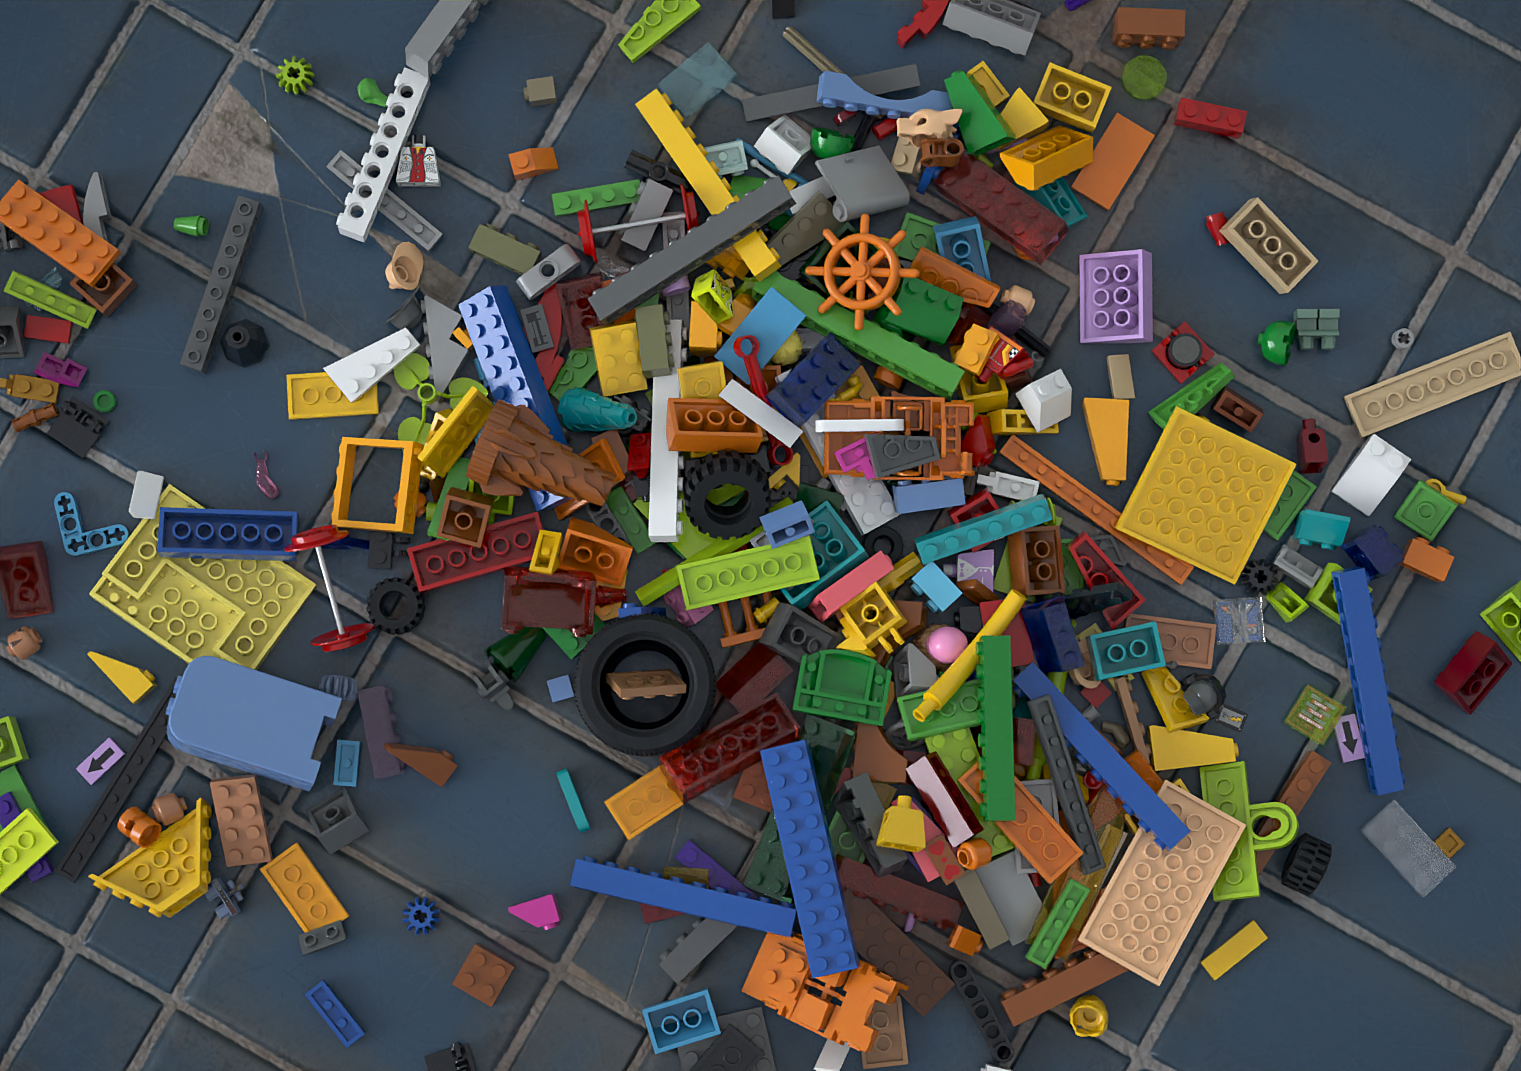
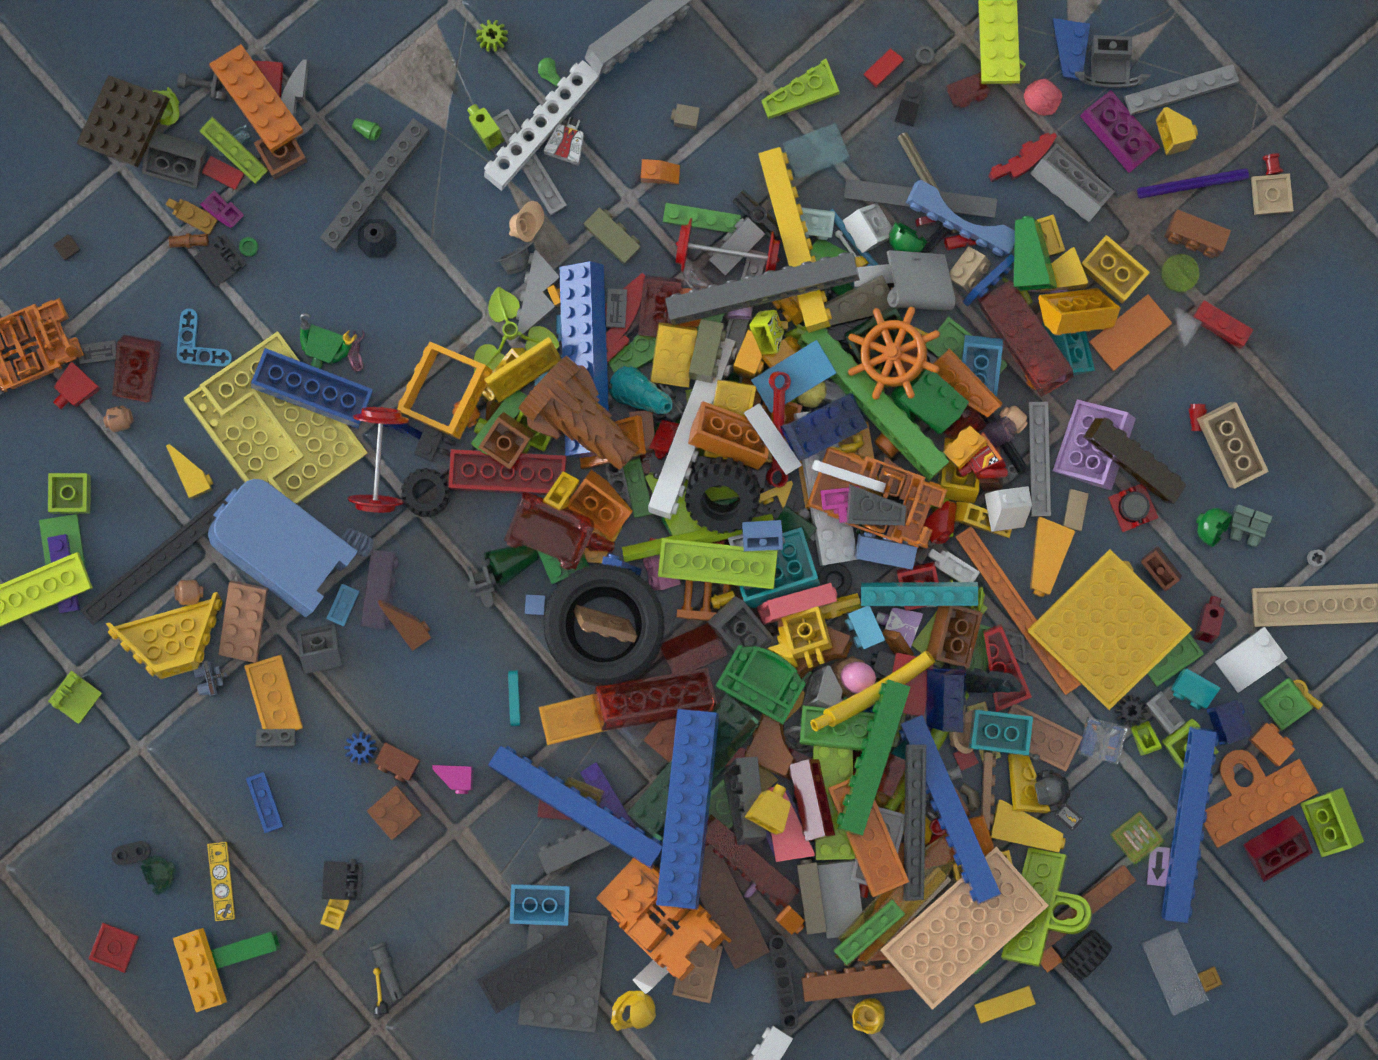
camera: 20 degrees right, 0 degrees up
(82, 970) = (74, 697): none -> lime hinge
(100, 761) = (146, 535): lavender tile -> none
(139, 827) = (160, 598): orange wheel -> none
(146, 495) = (256, 334): white slope -> none
(225, 480) = (323, 344): none -> green torso
(319, 397) = (433, 304): yellow tile -> none
(322, 178) = (485, 127): none -> lime torso
(369, 365) = (471, 291): white wing -> none
(467, 917) = (397, 762): none -> copper brick
(534, 282) = (627, 270): light grey piece -> none
(928, 124) = (989, 254): light nougat piece -> none
(938, 152) = (988, 276): dark orange piece -> none
(944, 859) = (795, 848): dark orange tile -> none
(974, 853) = (821, 851): orange head -> none
(1061, 334) = (1039, 459): none -> light grey plate
(1168, 299) = (1135, 460): none -> dark brown brick
(1171, 133) = (1185, 325): none -> clear slope
(1193, 395) = (1129, 545): bright green wing -> none
(1267, 883) = (1050, 959): none -> orange tile
(1433, 628) = (1257, 802): none -> orange plate

